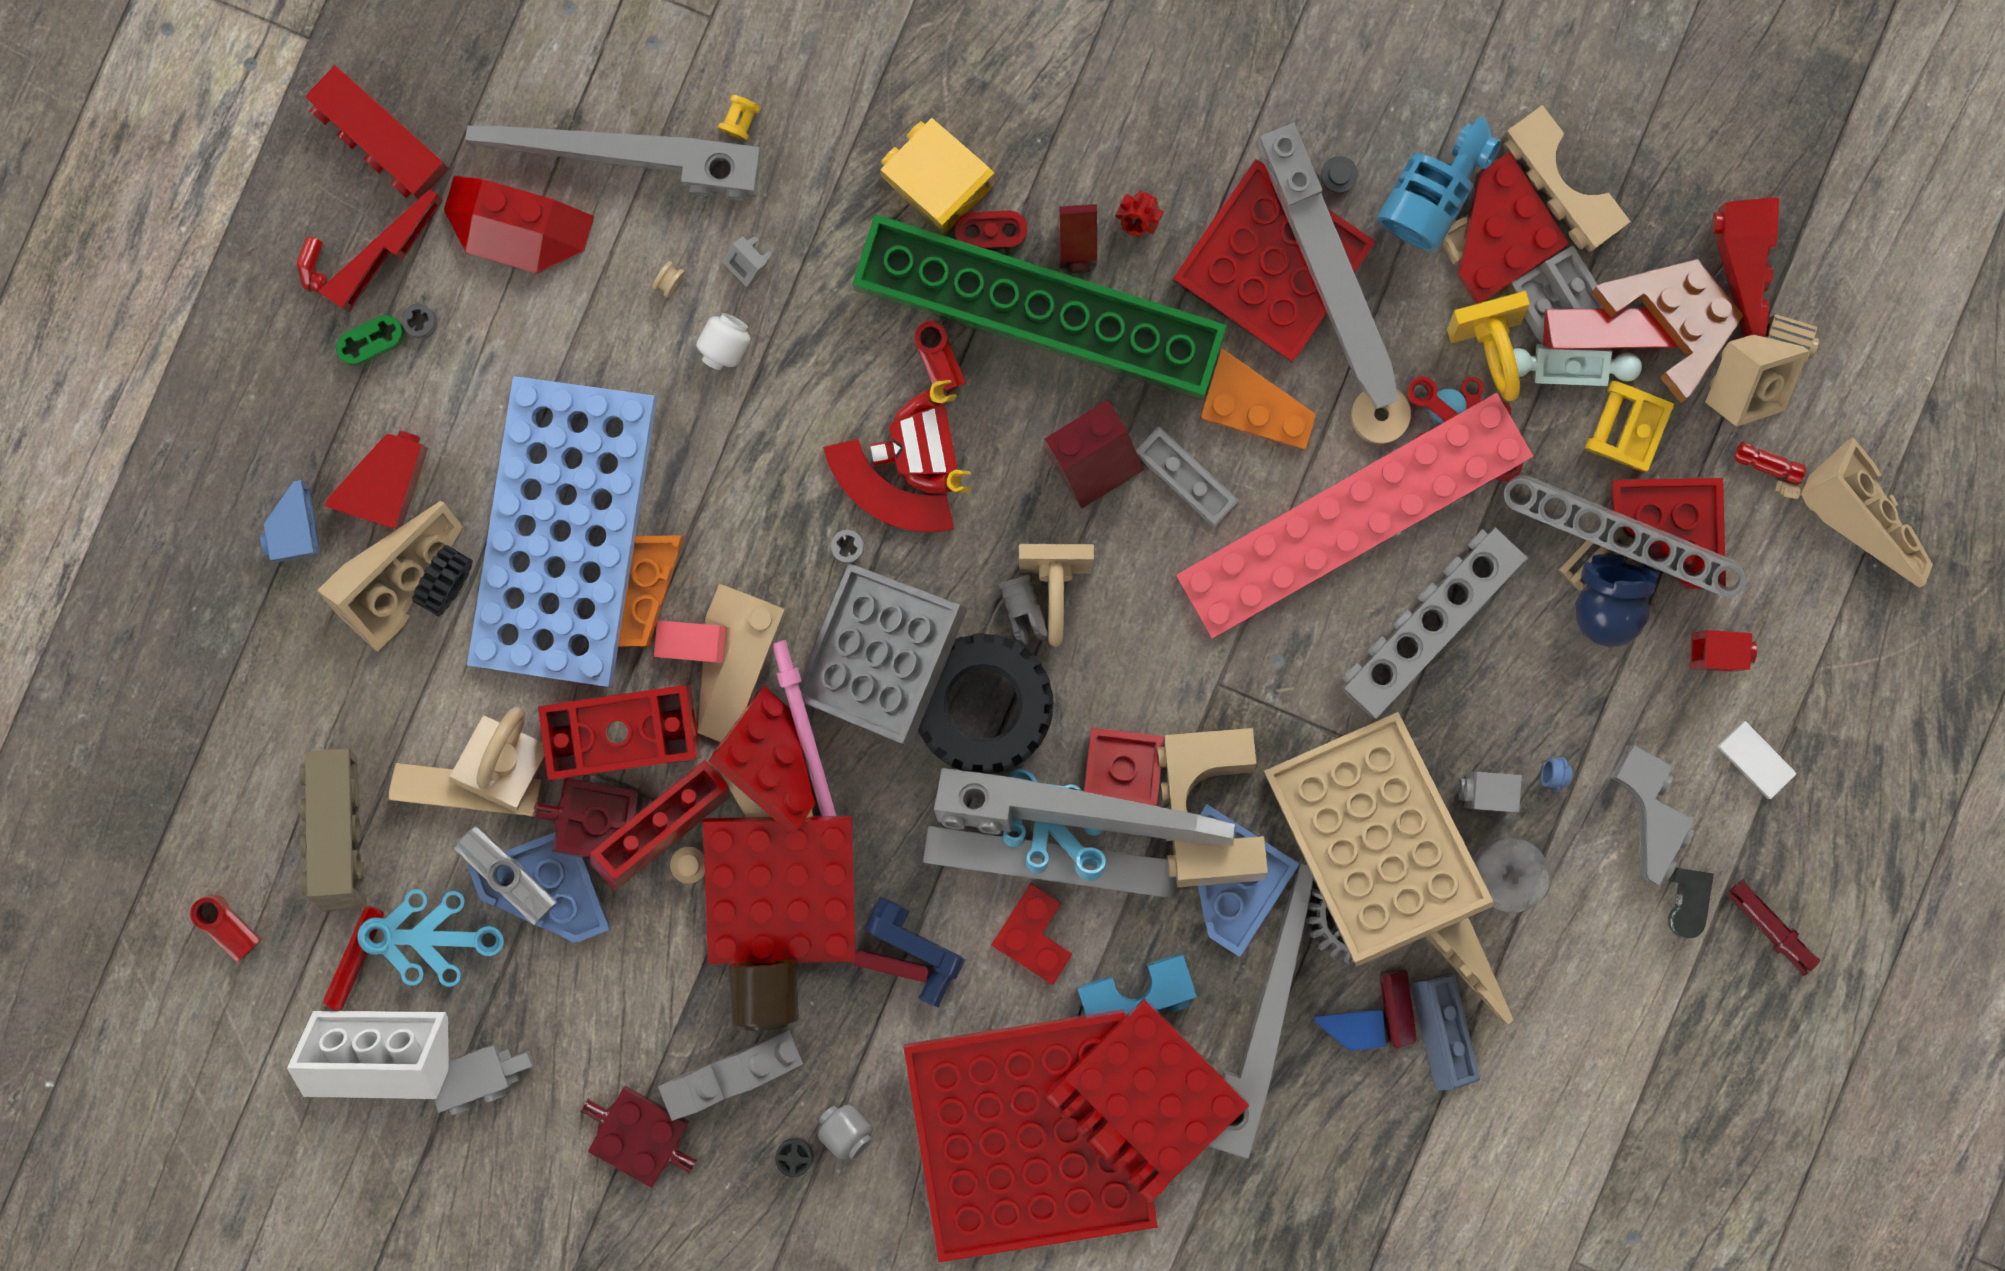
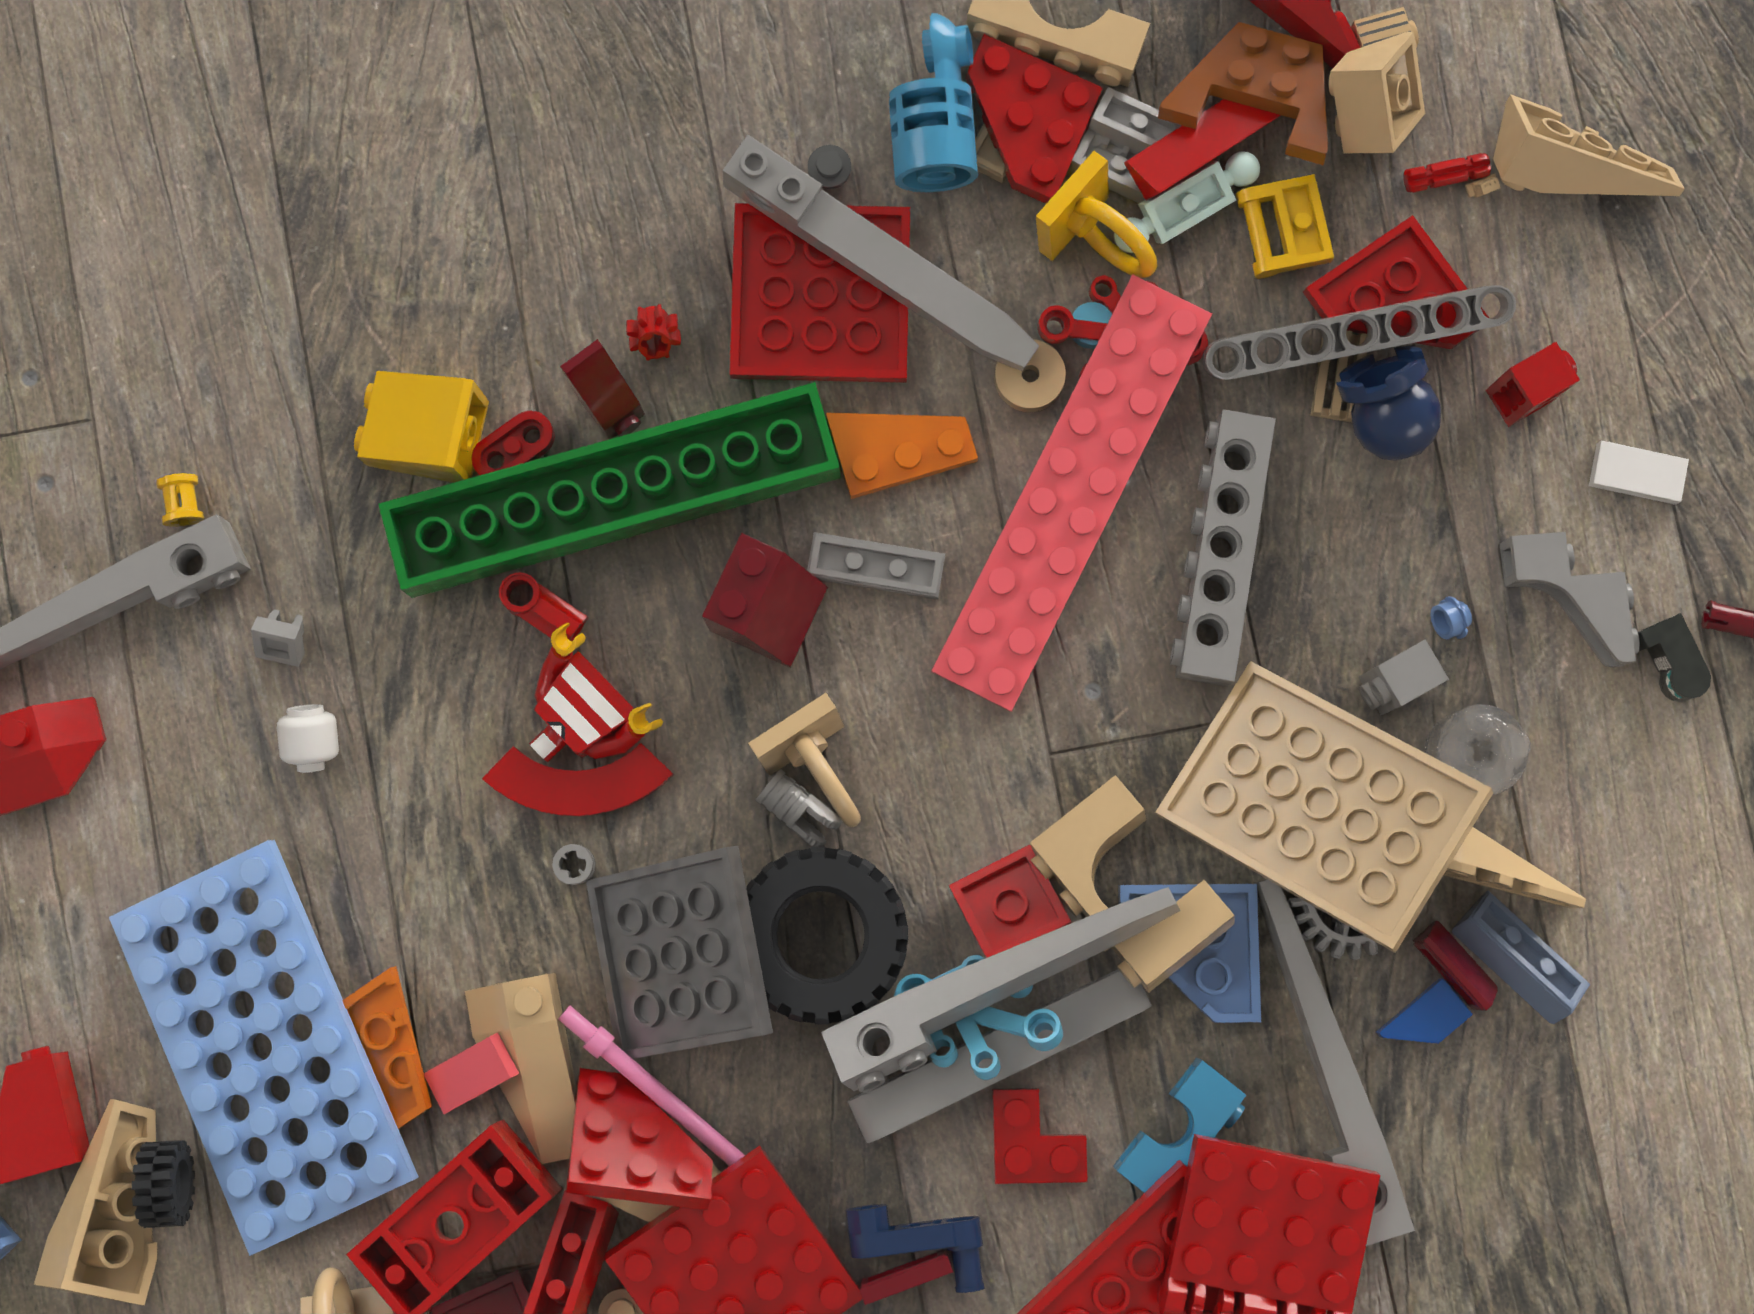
camera: 30 degrees left, 5 degrees down
(668, 279) = (210, 711): tan bush -> none

